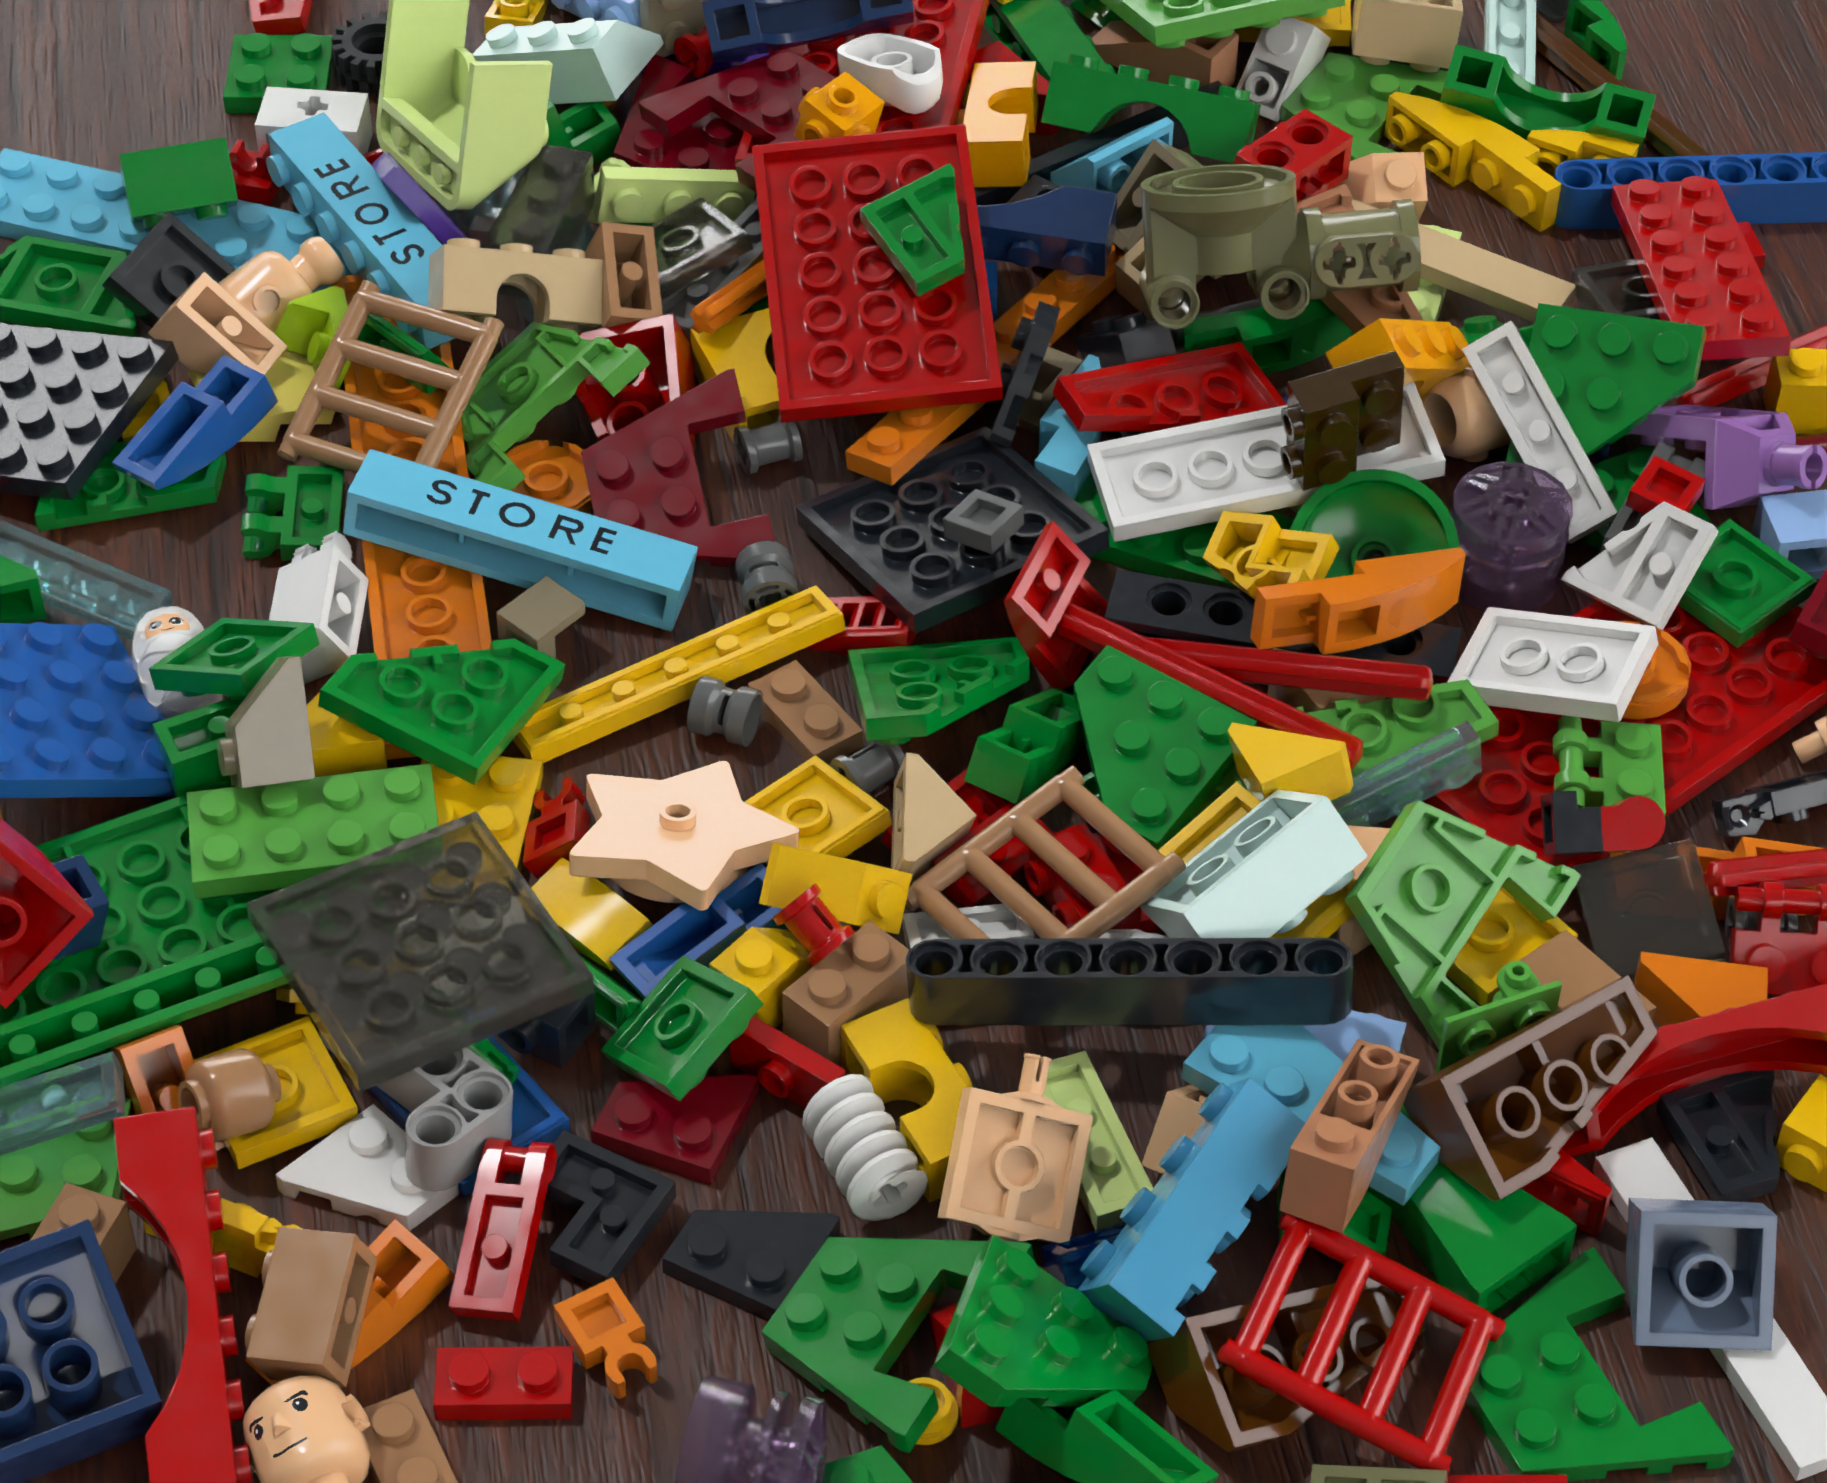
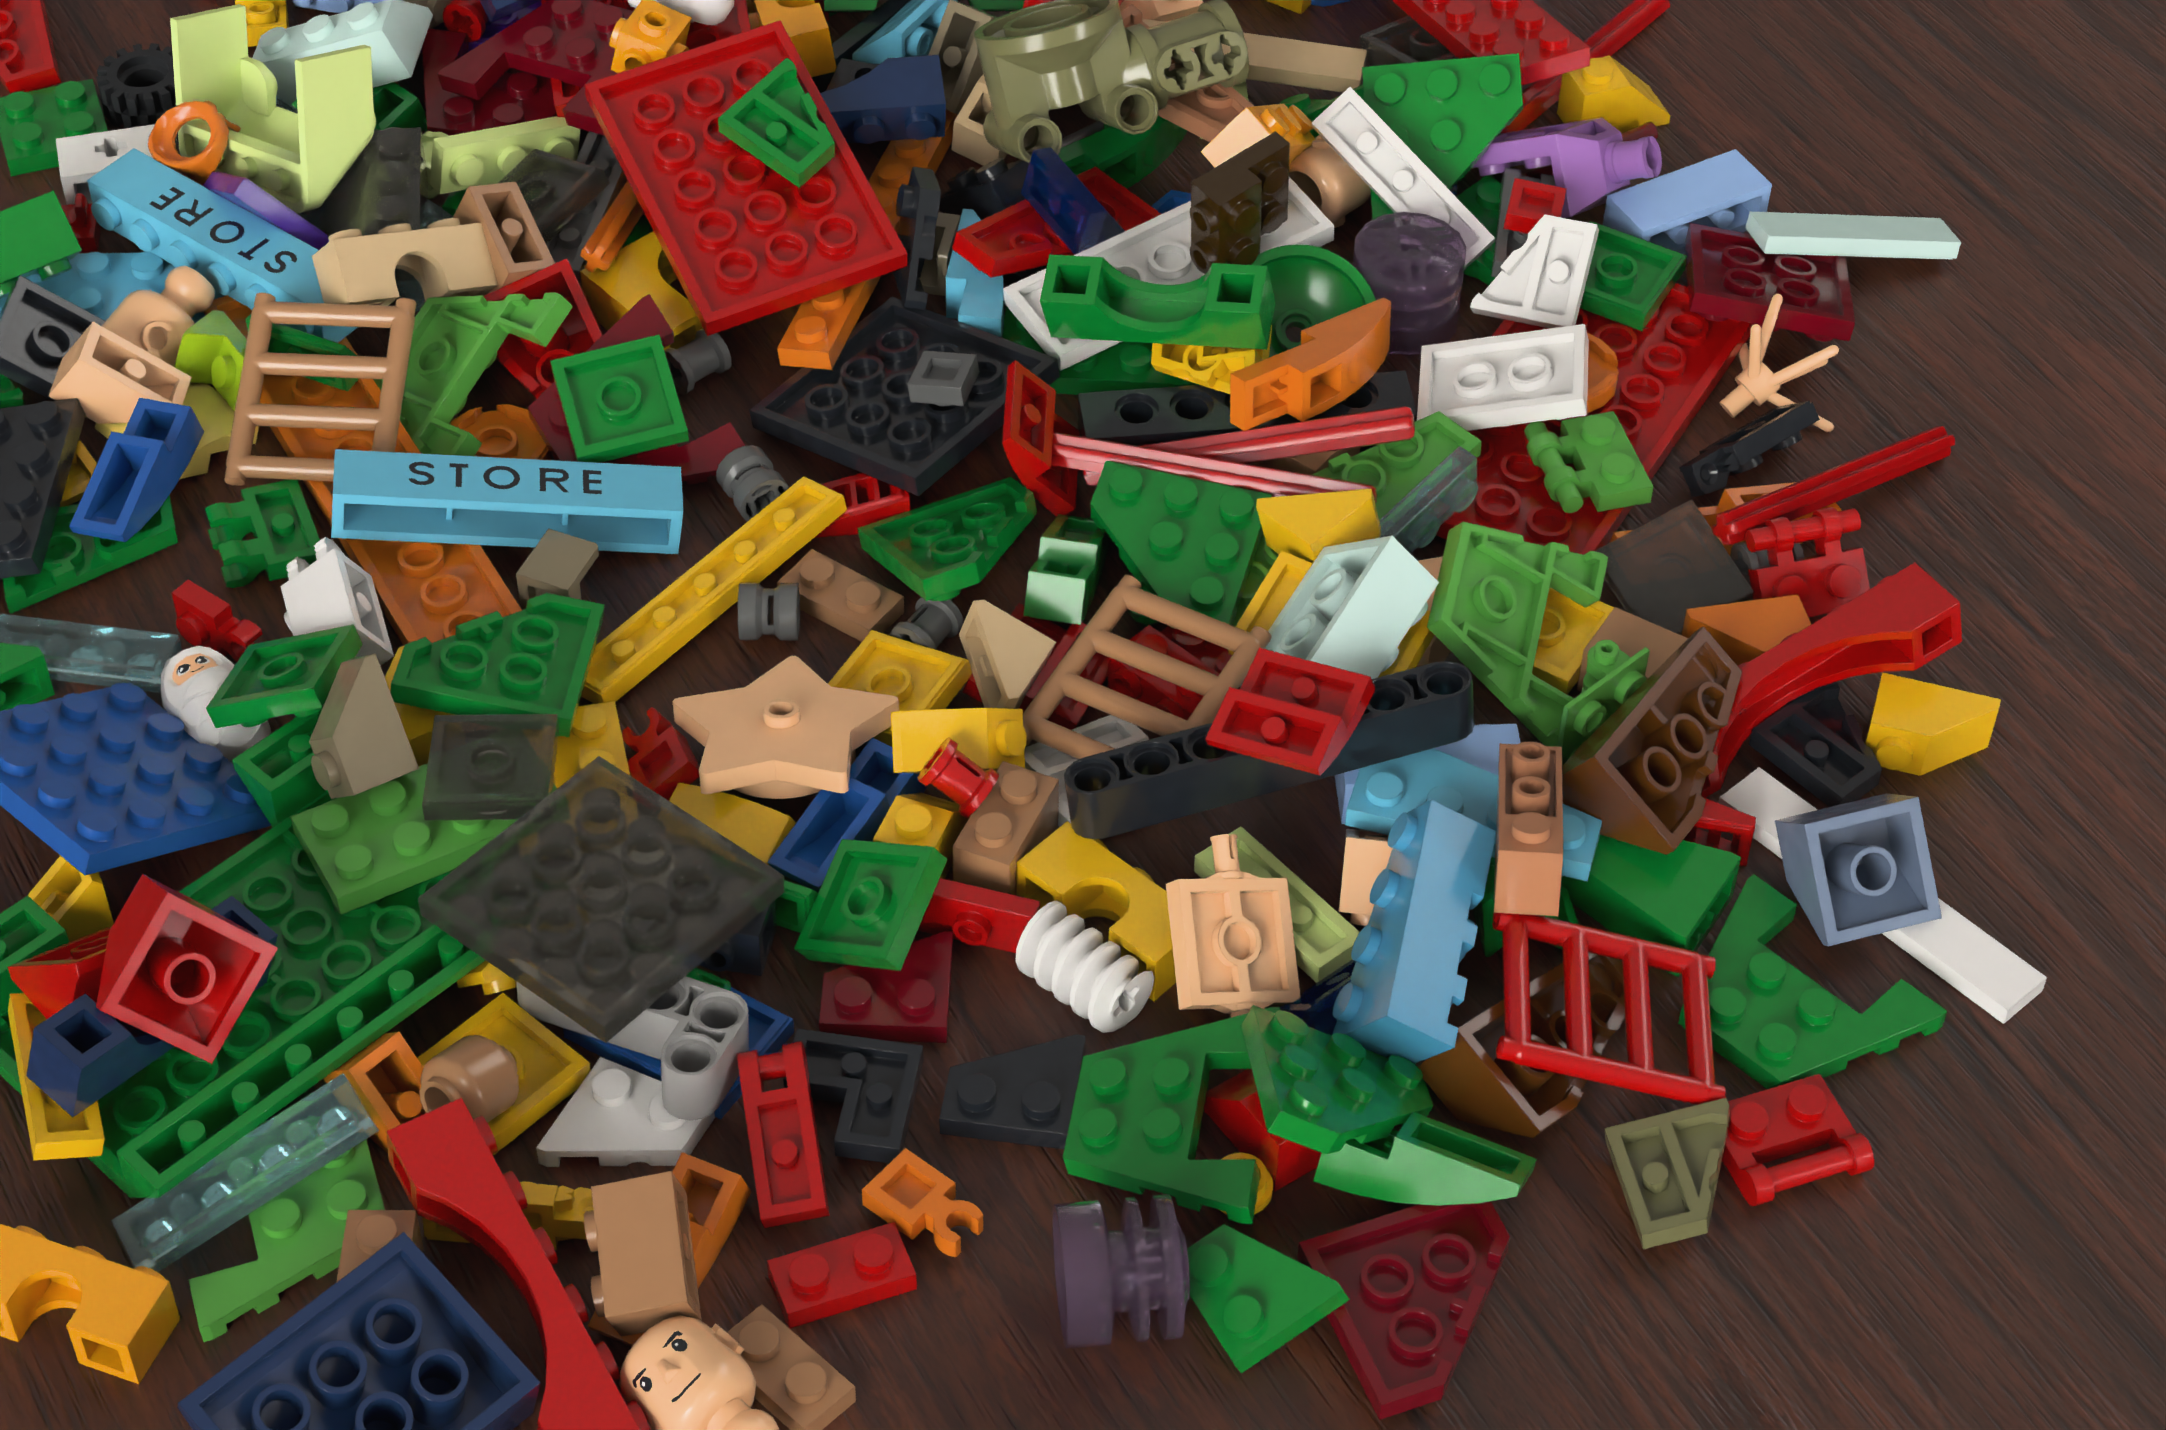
camera: 20 degrees left, 0 degrees up
(204, 585) = (210, 622): none -> red plate
(353, 113) = (163, 135): none -> orange piece
(380, 792) = (489, 766): none -> clear smoke tile
(662, 466) = (619, 400): none -> green plate
(1150, 950) = (1291, 712): none -> red slope
(1161, 481) = (1097, 302): none -> green arch
(1186, 374) = (1066, 203): none -> clear blue panel
(1617, 828) = (1620, 508): leg -> none

